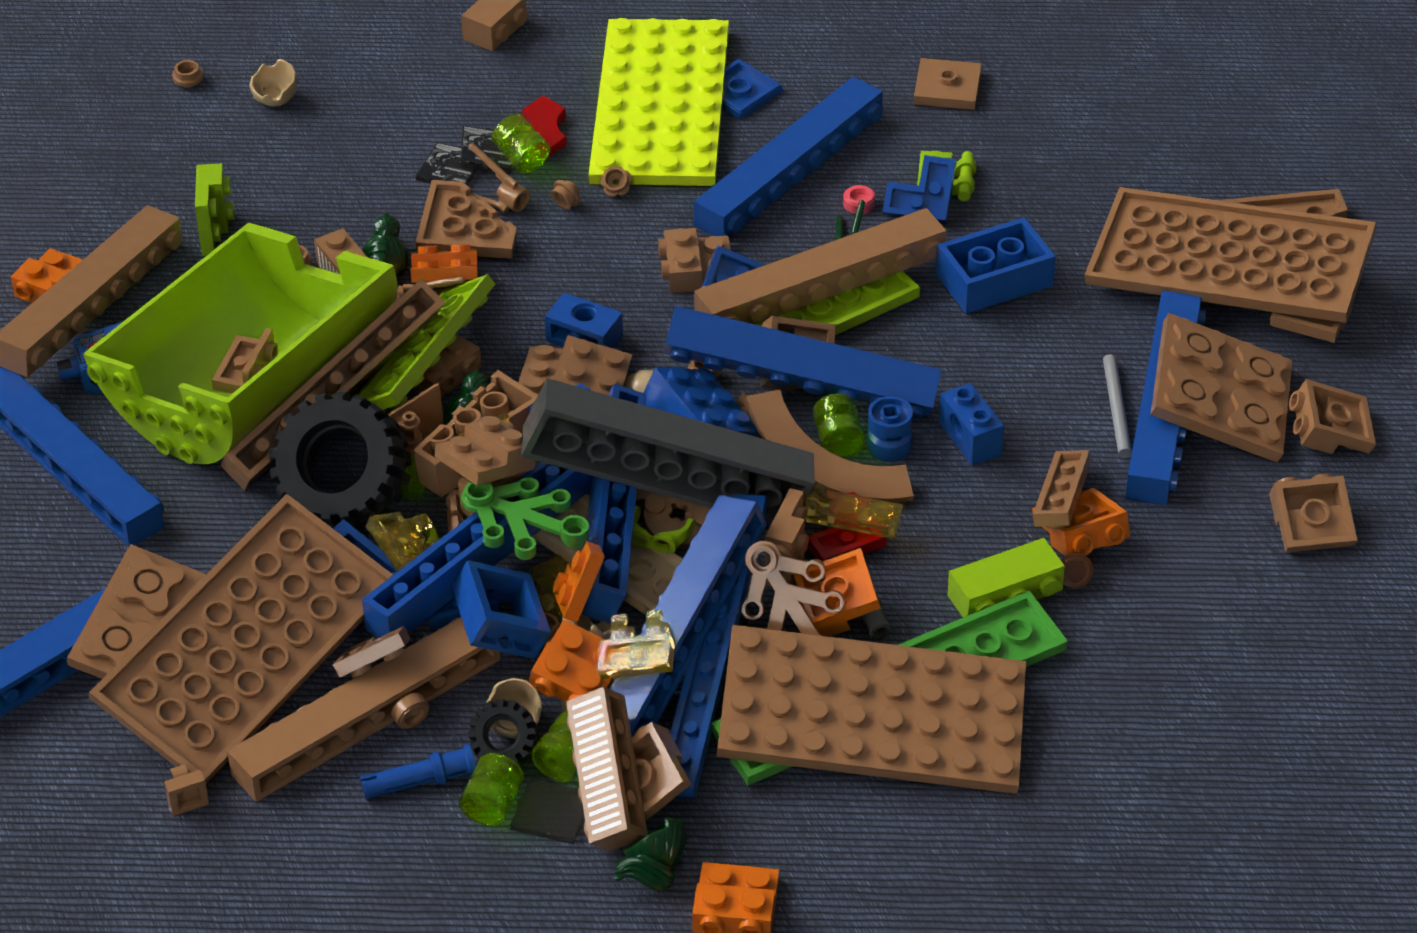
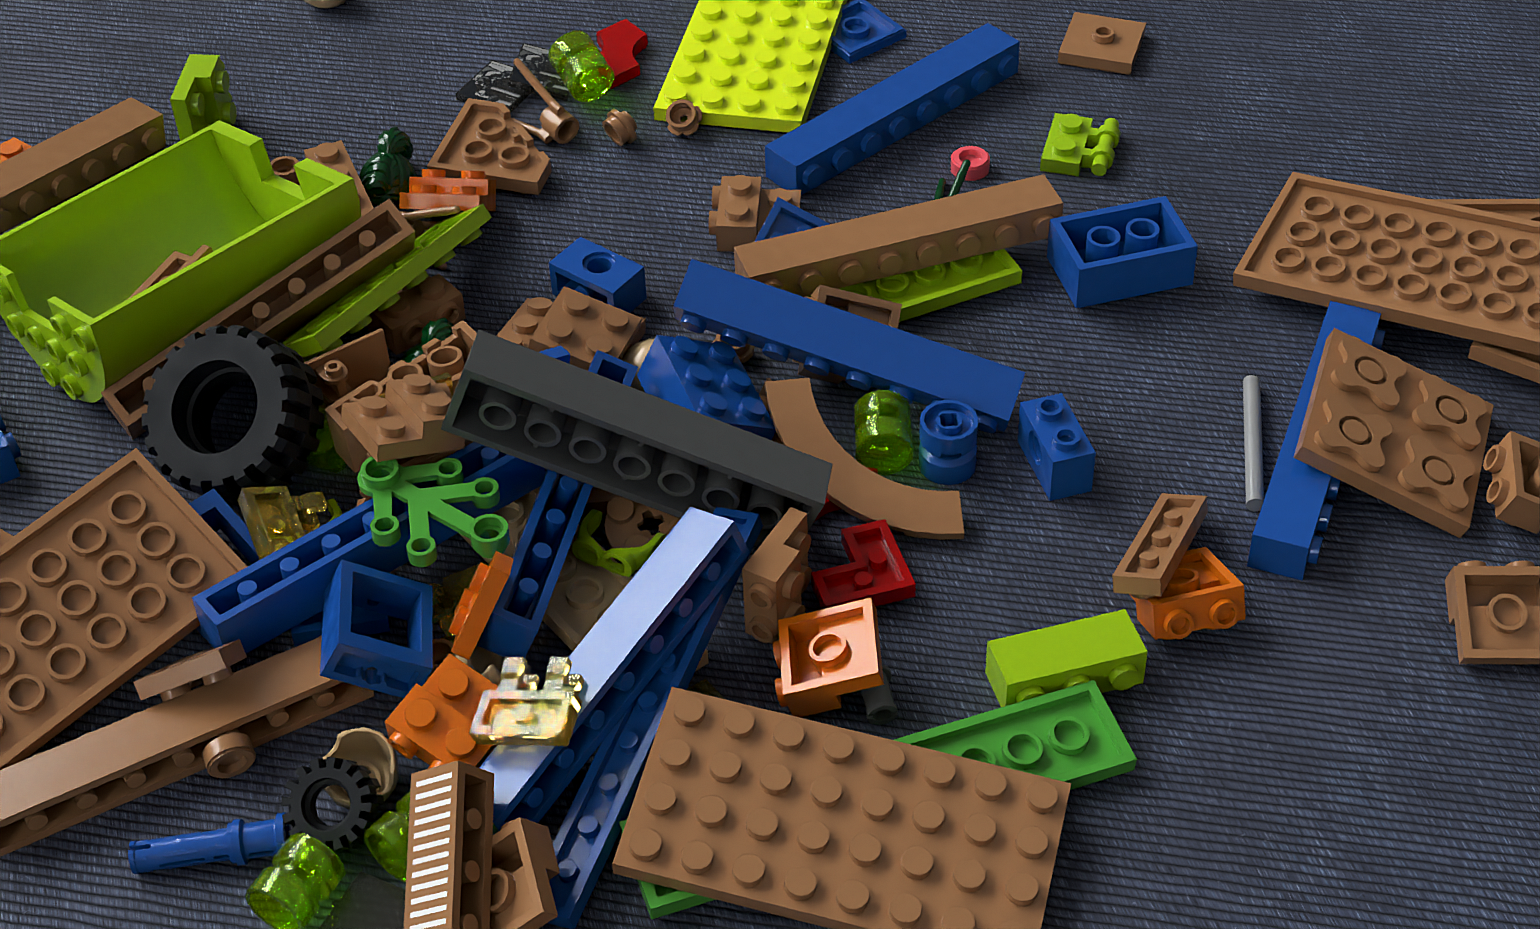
camera: 10 degrees right, 0 degrees up
(786, 595) = (756, 653): medium nougat plant -> none
(853, 512) = (875, 546): clear yellow plate -> none
(932, 193) = (1058, 161): blue plate -> none
(1077, 571) = (1165, 658): reddish brown plate -> none

